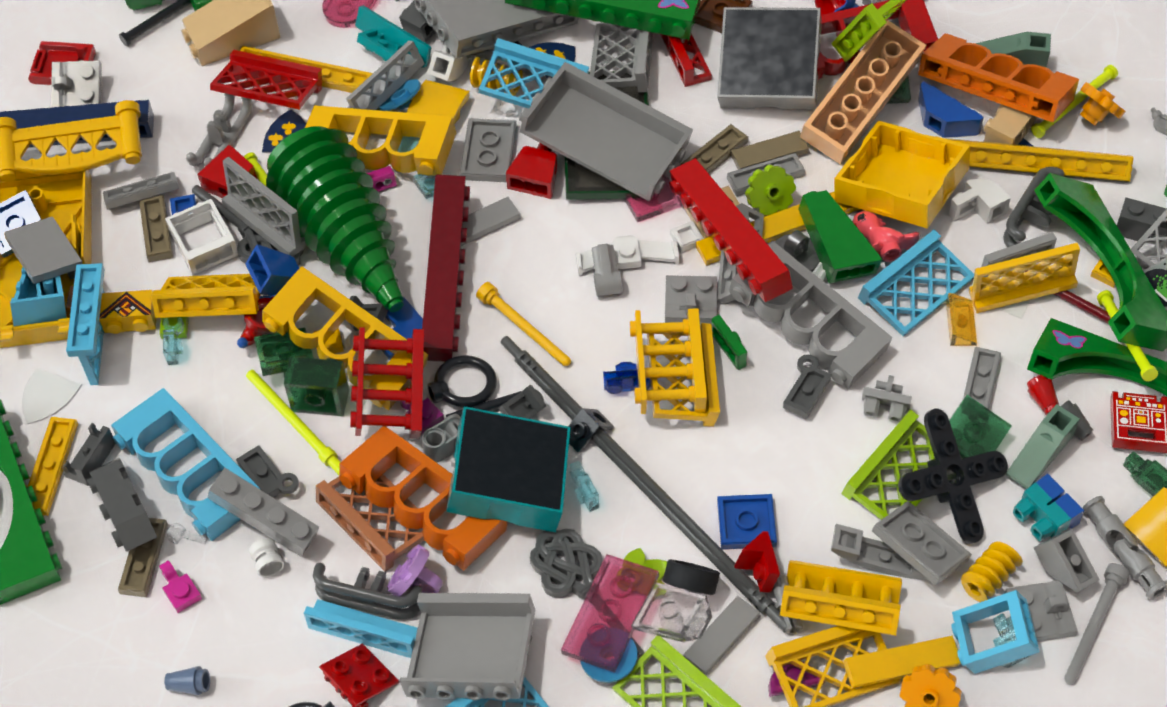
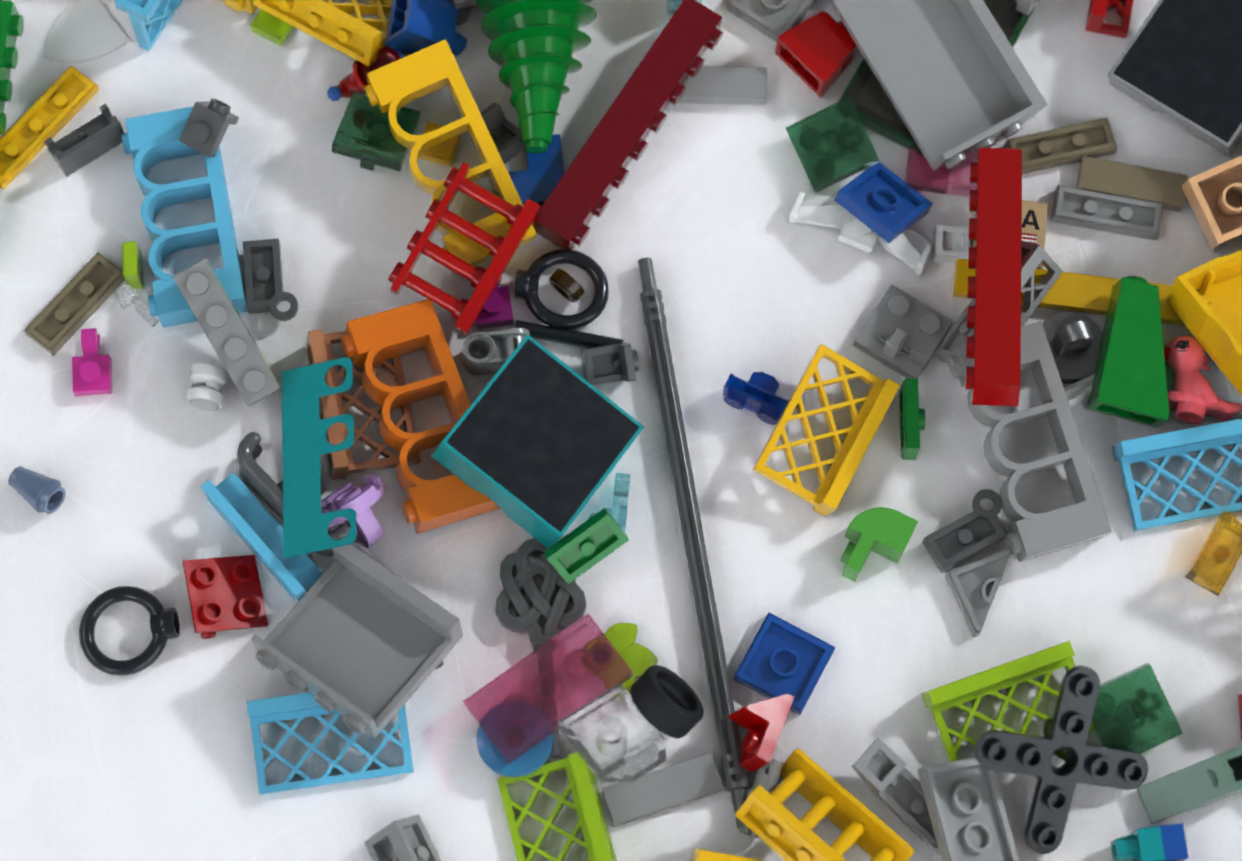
camera: 25 degrees right, 15 degrees up
(121, 505) = (80, 229): dark grey brick -> none
(168, 509) = (132, 264): none -> lime tile
(171, 344) = (255, 46): clear light blue plate -> none
(171, 398) = (207, 126): none -> dark grey bracket
(316, 386) = (384, 200): clear green brick -> none
(326, 454) = (349, 293): neon yellow bar -> none
(357, 553) = (302, 444): none -> teal piece
(465, 377) = (566, 285): none -> dark brown tile
(489, 295) = (662, 189): yellow piece -> none
(578, 216) = (832, 144): none -> clear green hinge
(580, 512) = (586, 545): none -> green tile
(585, 427) = (669, 431): black bracket -> none
(606, 277) = (817, 246): light grey piece -> none
(631, 231) = (883, 202): none -> blue tile
(692, 370) = (833, 438): yellow fence -> none
(754, 414) = (876, 530): none -> bright green brick
(770, 190) = (1092, 242): lime plant -> none
(833, 415) = (976, 586): none -> light grey tile
(898, 402) = (1064, 621): light grey hips -> none
(982, 375) = (1192, 646): light grey tile -> none

